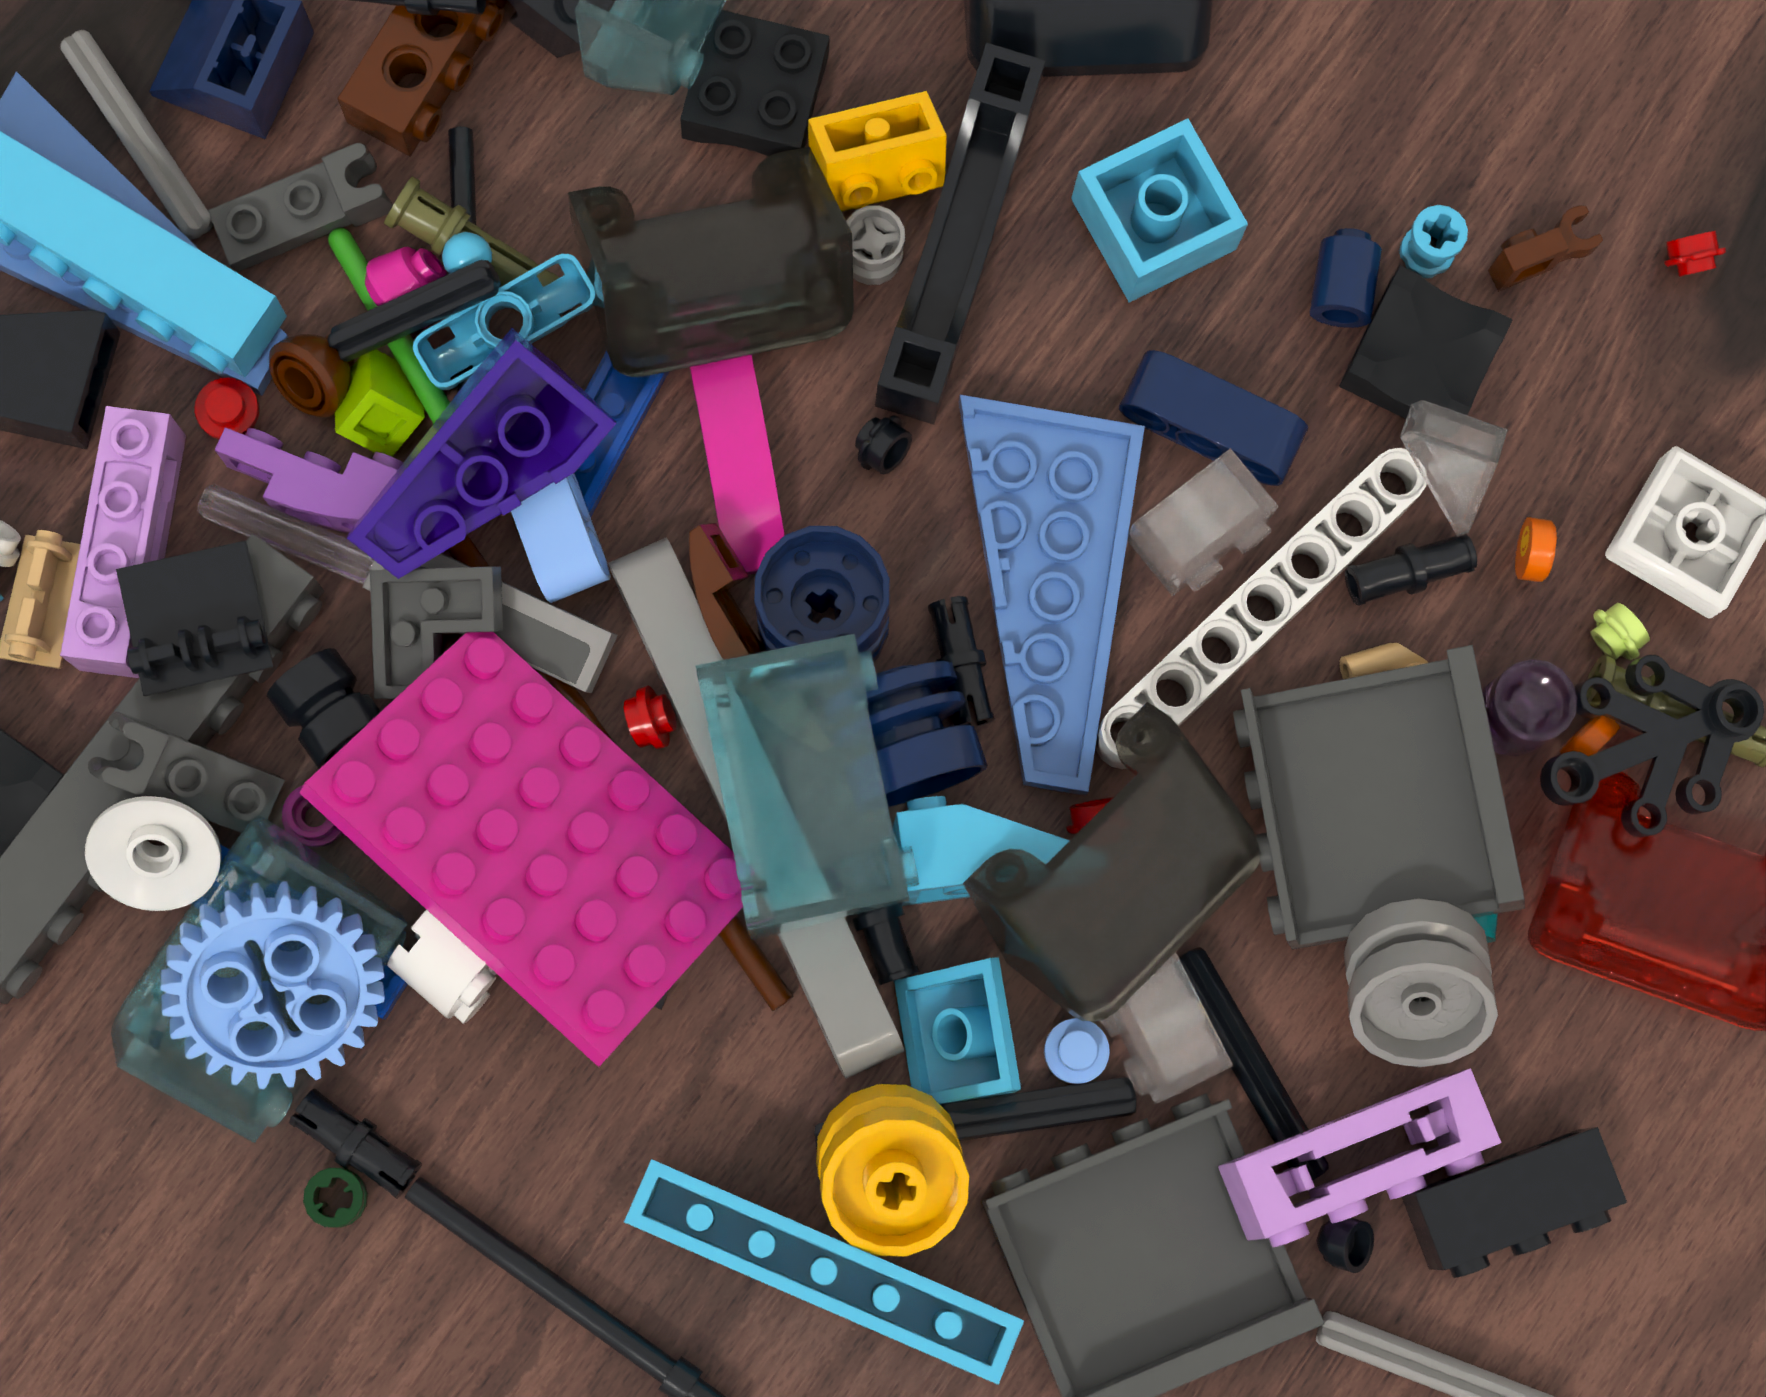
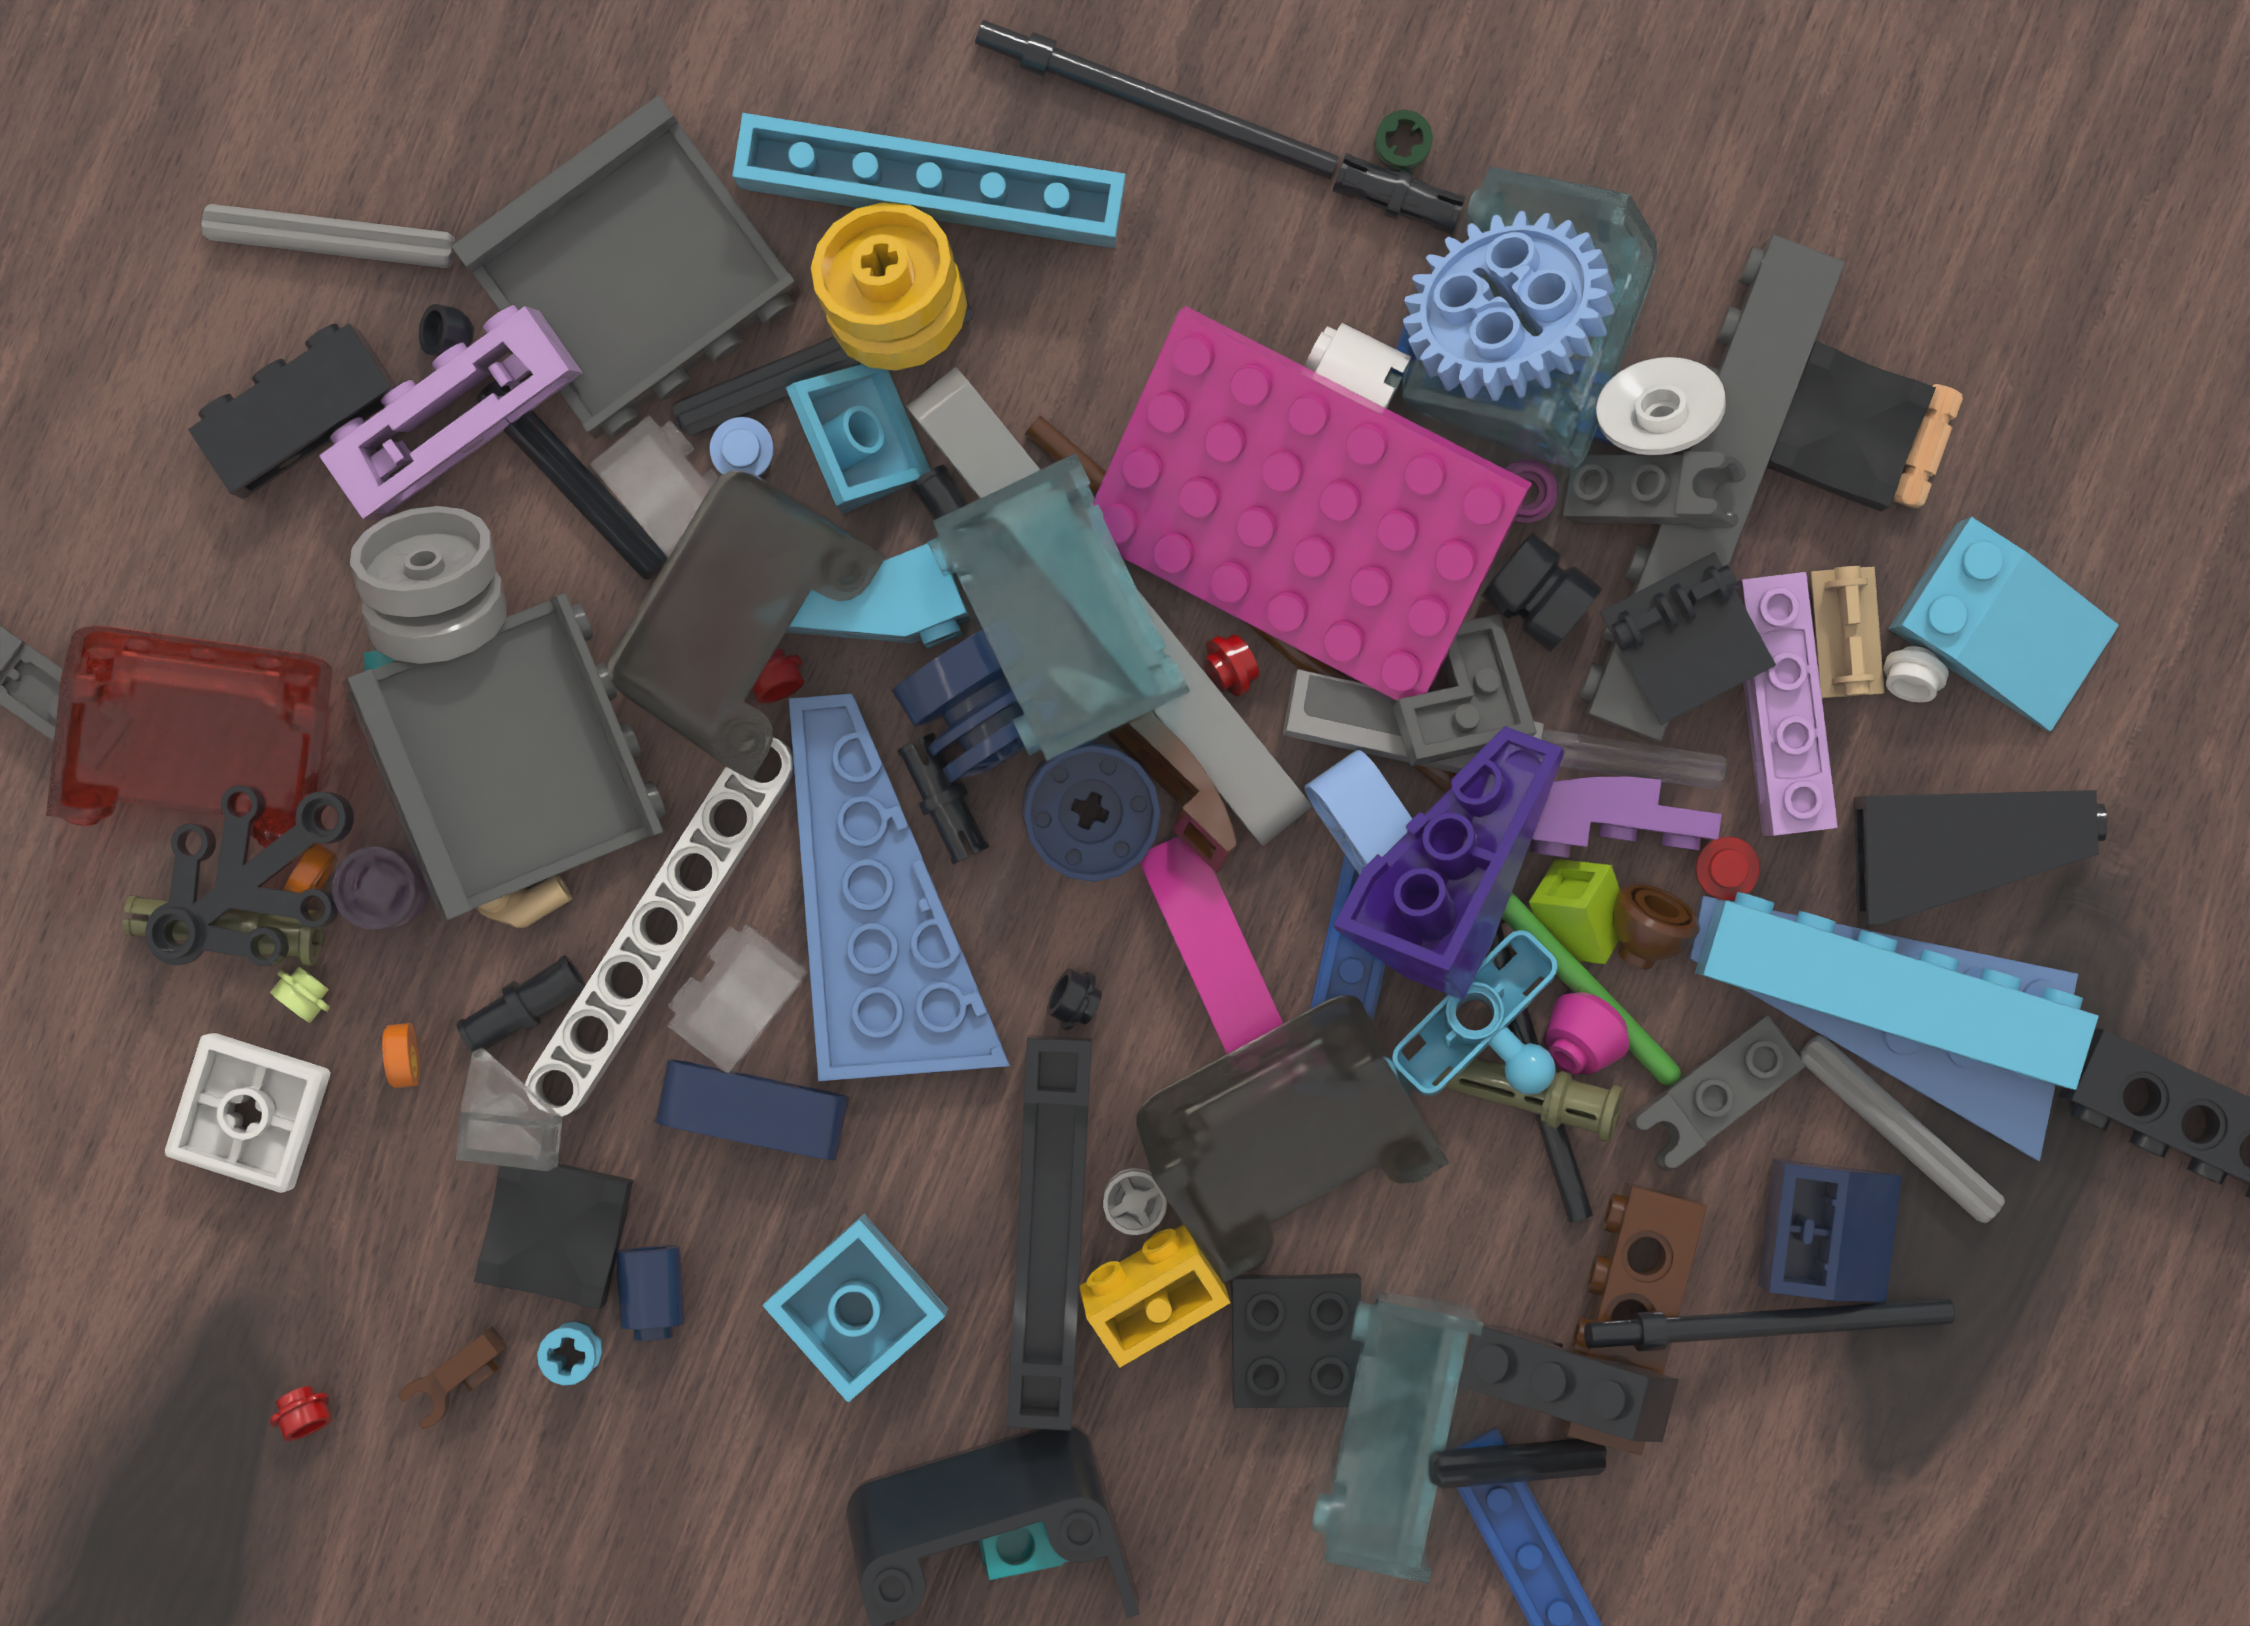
camera: 175 degrees right, 10 degrees up
(414, 310) = (1565, 999): black axle -> none

